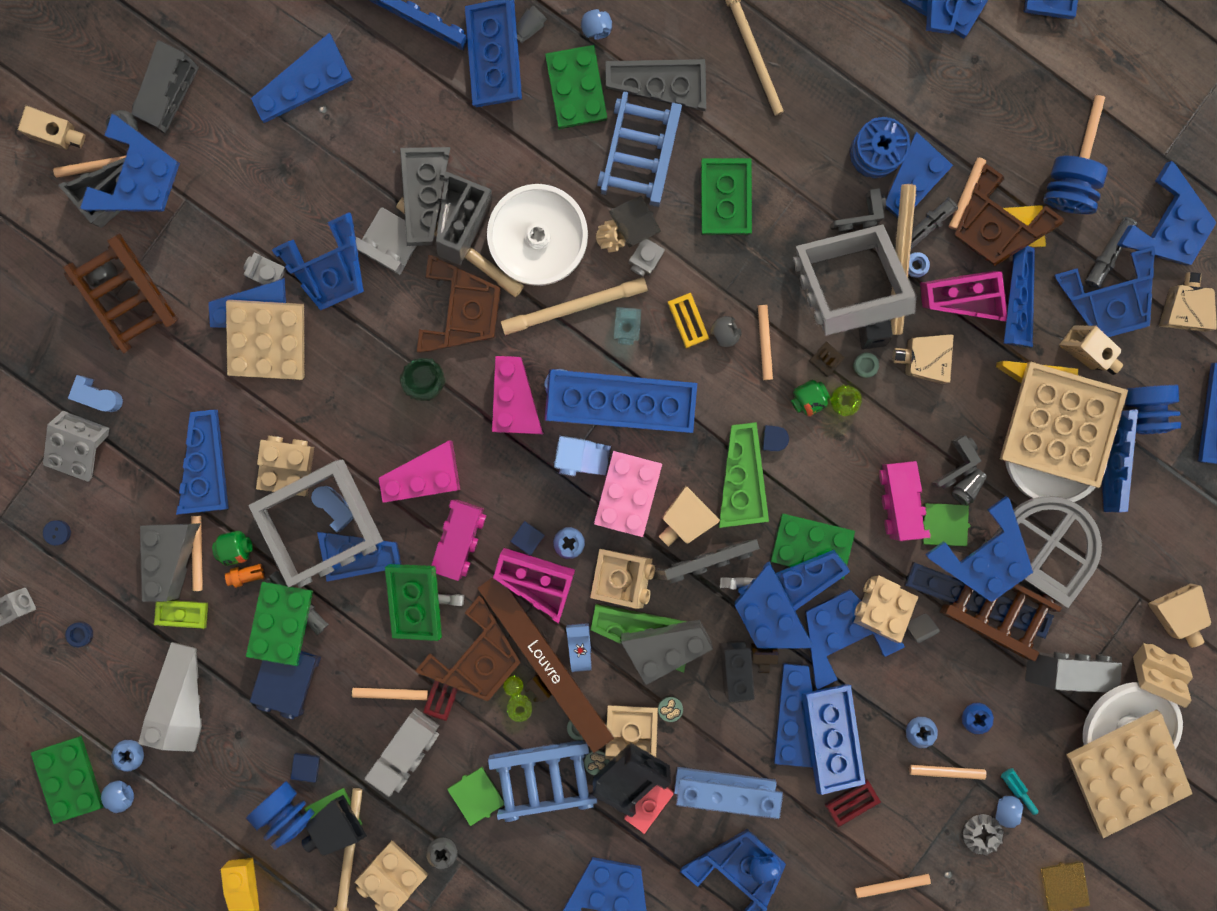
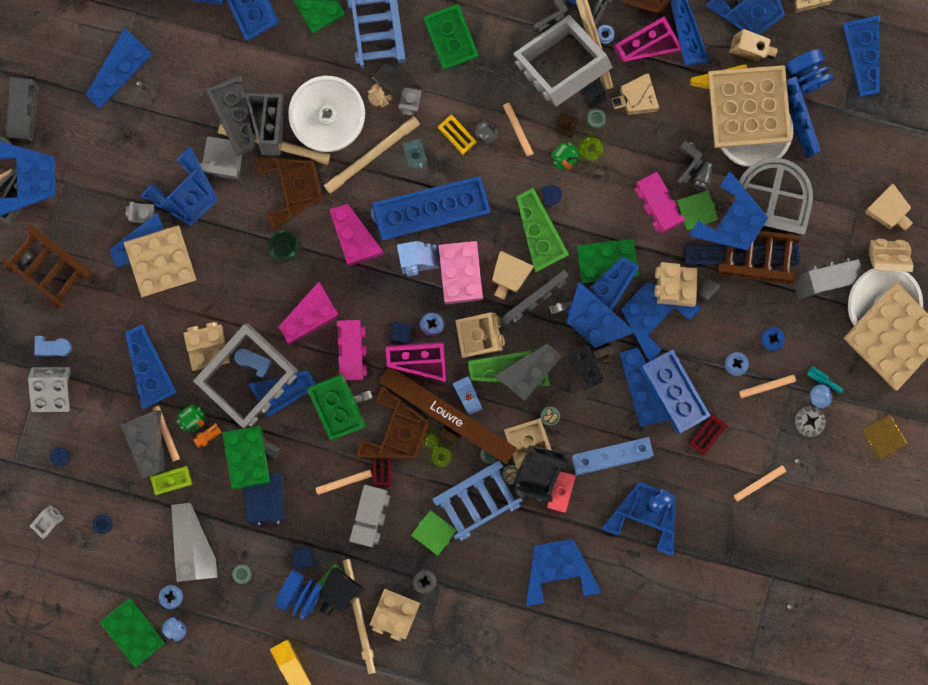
camera: 20 degrees left, 5 degrees down
(225, 759) = (242, 574): none -> sand green tile

